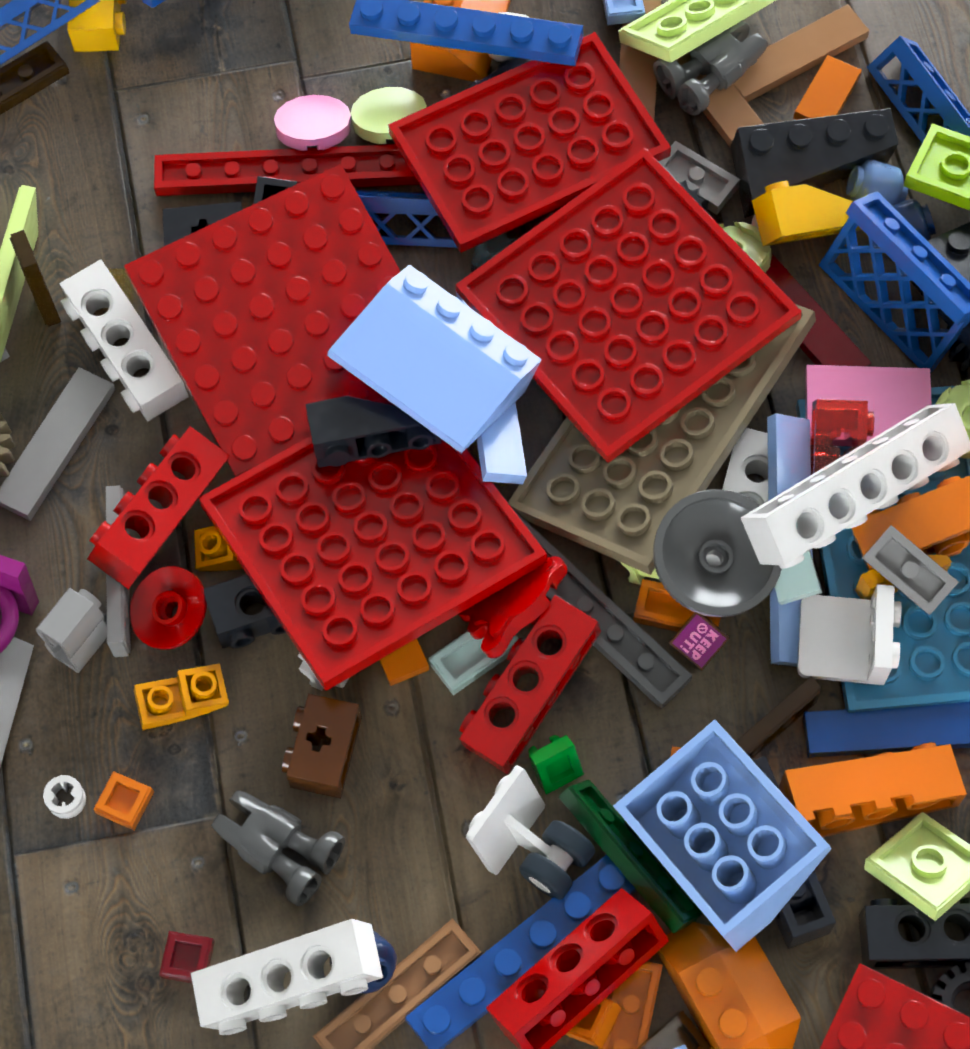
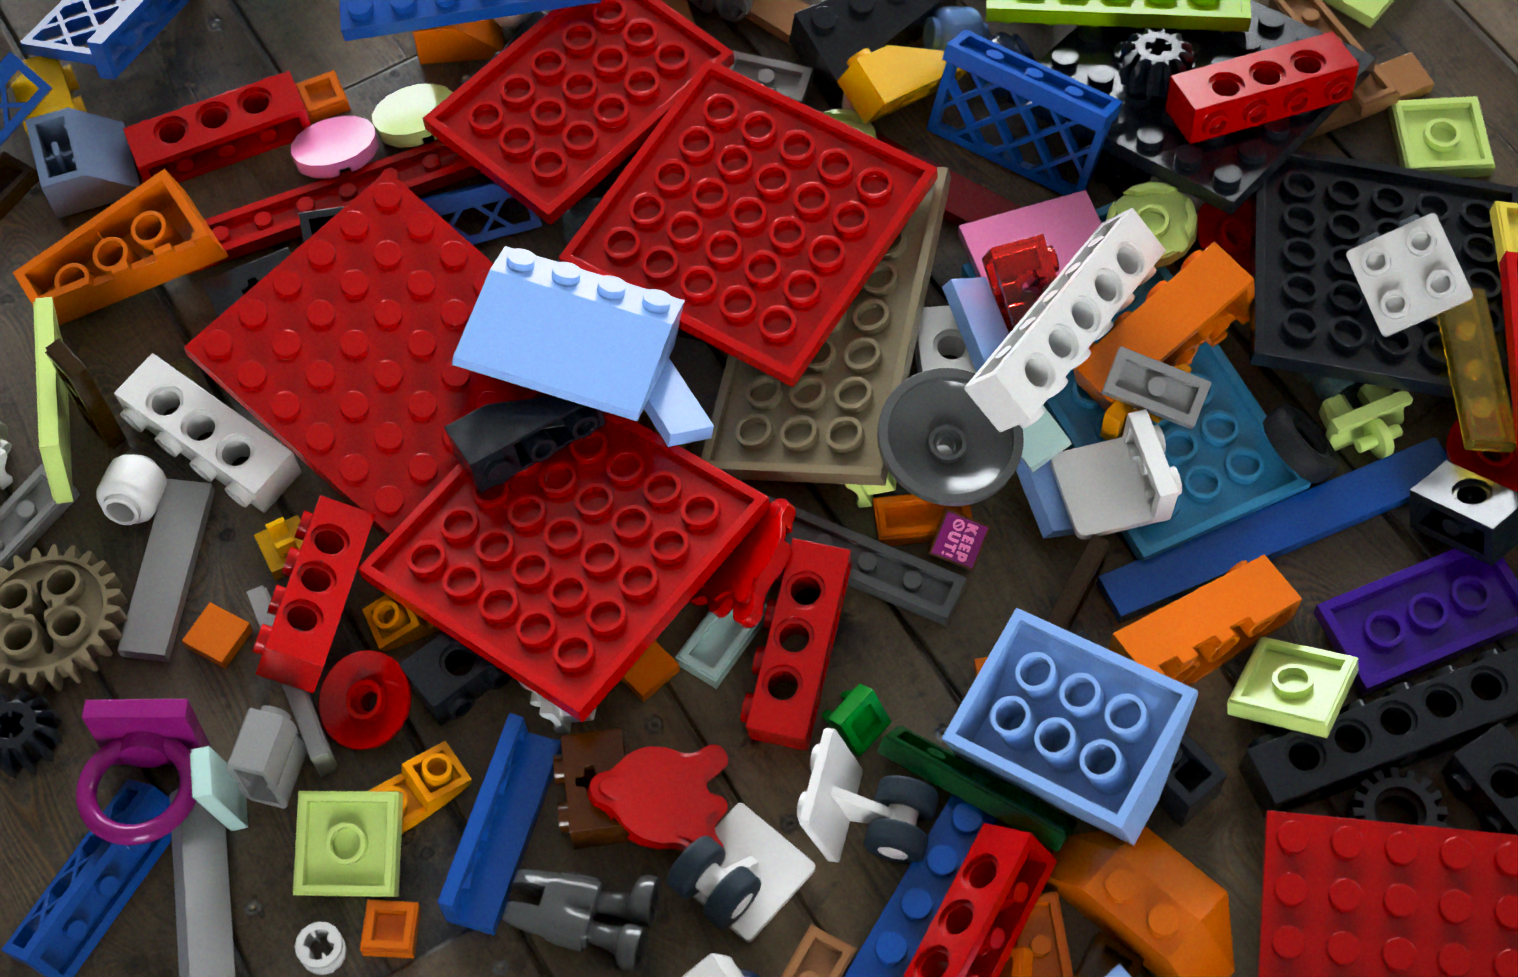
camera: 20 degrees left, 5 degrees down
(24, 642) = (217, 789): none -> light aqua tile
(48, 367) = (131, 489): none -> white head
(74, 512) = (217, 635): none -> orange tile
(105, 70) = (81, 160): none -> sand blue slope
(108, 162) = (123, 251): none -> orange wedge
(114, 721) = (348, 843): none -> yellowish green tile
(146, 450) = (276, 543): none -> yellow tile
(207, 90) = (219, 129): none -> red brick
(235, 749) = (499, 828): none -> blue fence
(320, 73) = (323, 97): none -> orange tile
(371, 776) = (663, 795): none -> red tile
(410, 856) = (746, 878): none -> white plate

